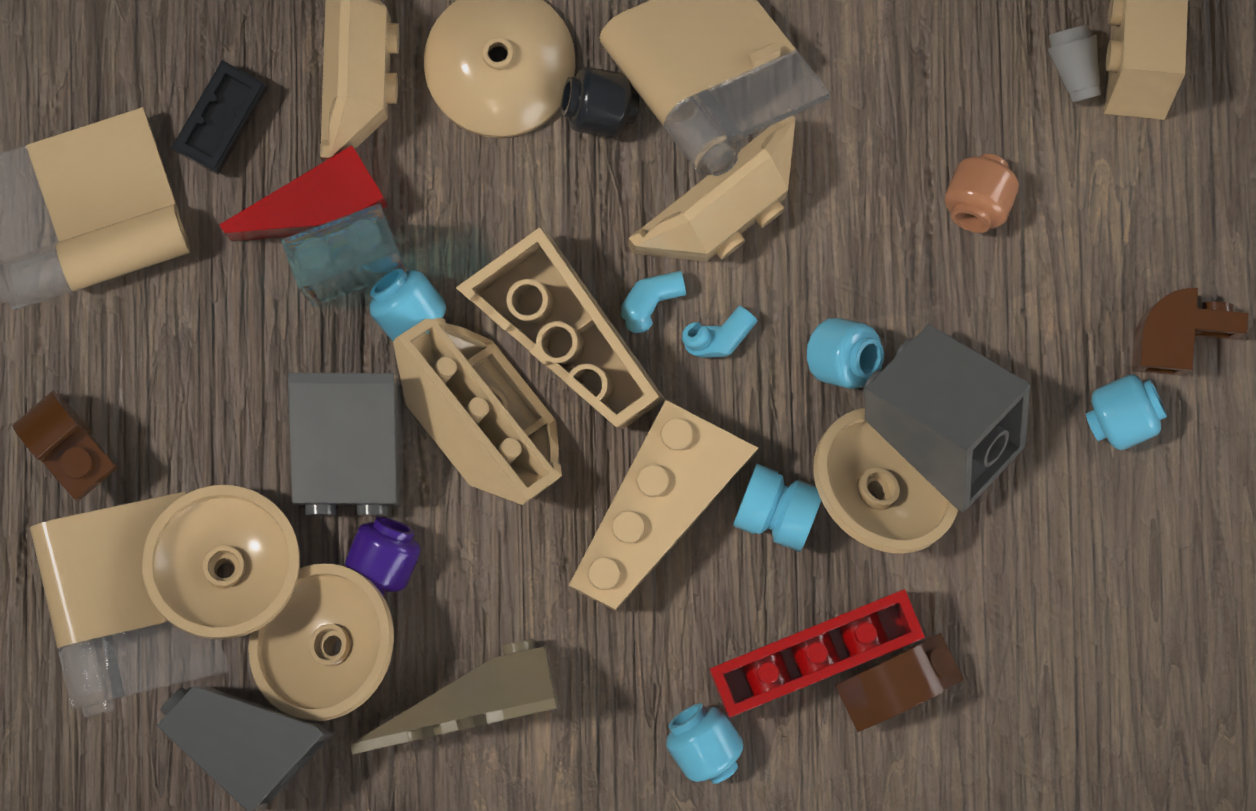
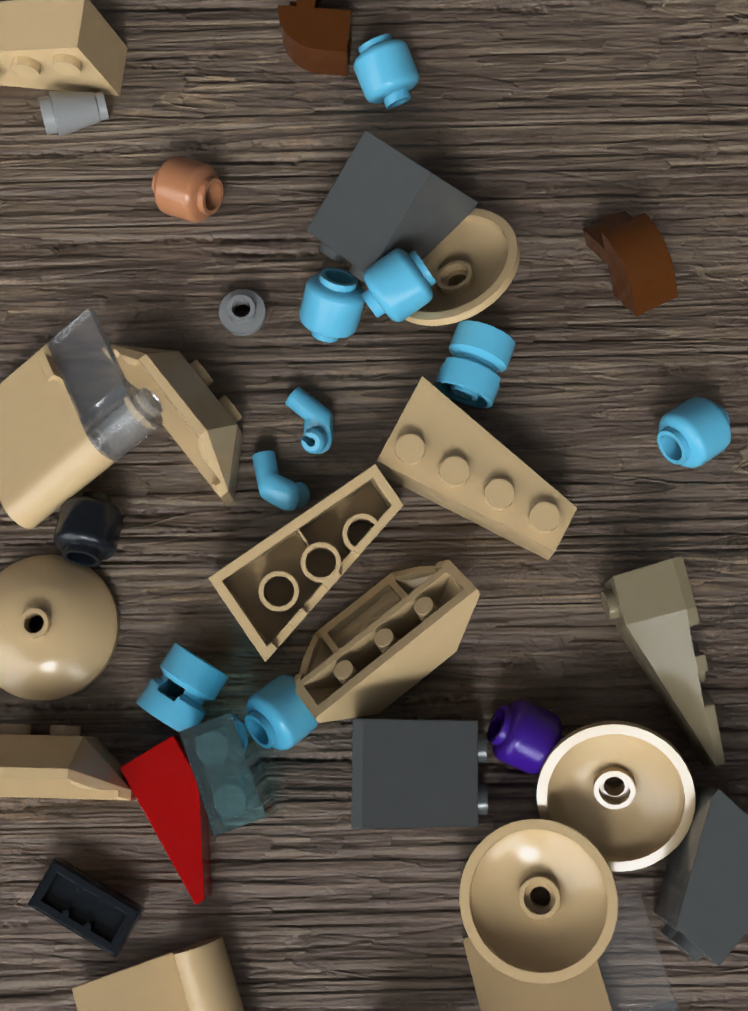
camera: 85 degrees left, 5 degrees down
(446, 216) = (184, 670): none -> medium azure wheel
(816, 653) = (610, 330): red brick -> none
(837, 272) = (242, 325): none -> light grey plate
(854, 420) = (398, 285): none -> medium azure head

